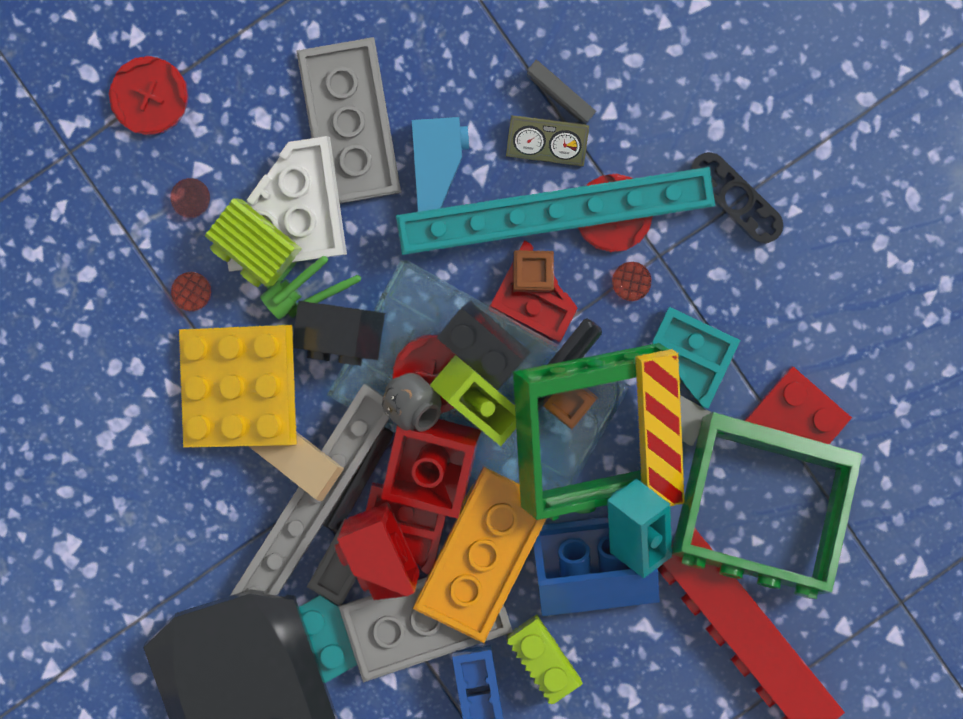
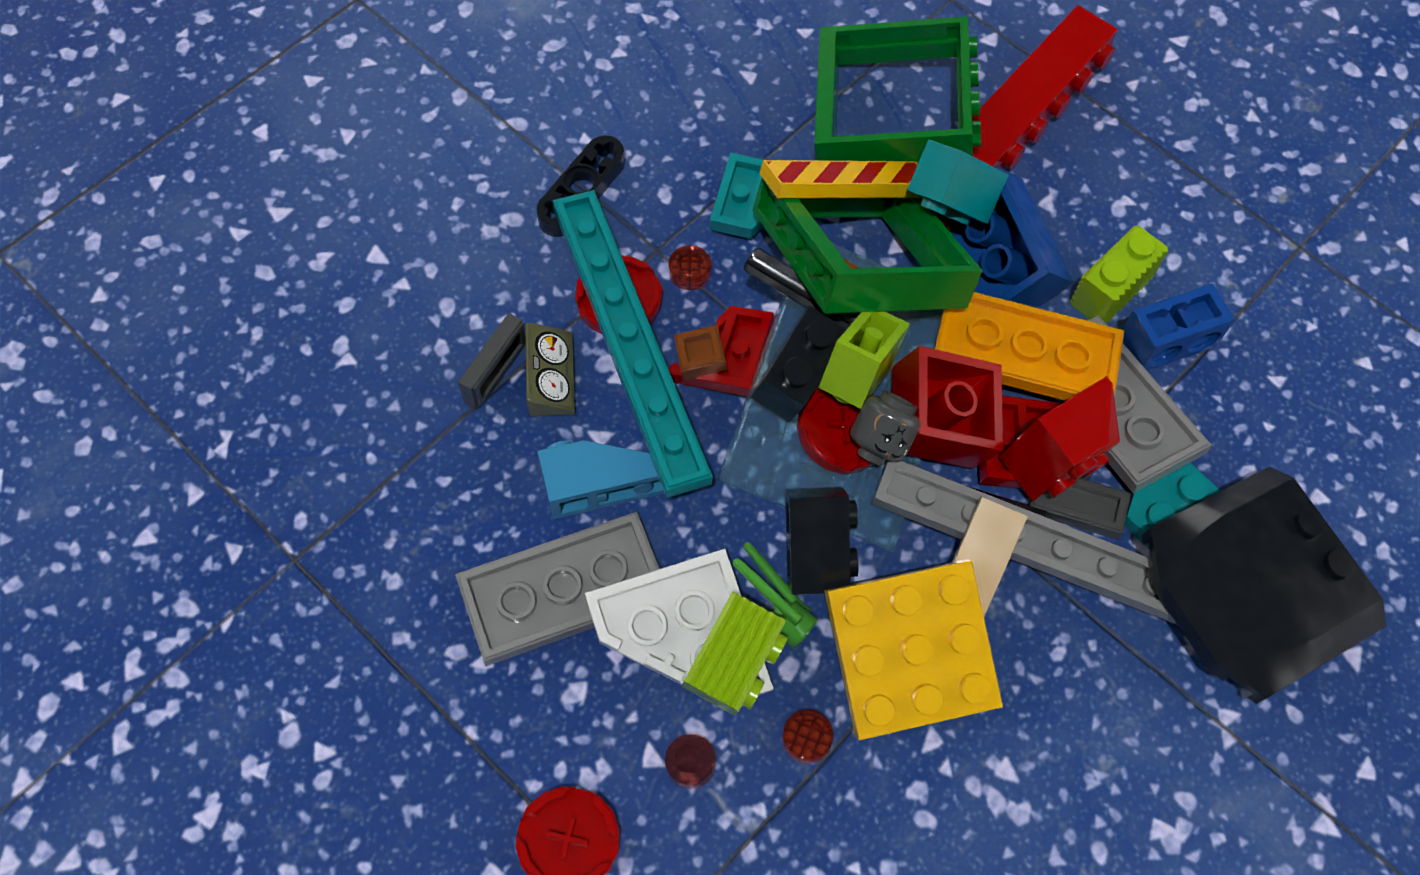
camera: 105 degrees left, 25 degrees down
(800, 409) = (787, 102): red wing -> none

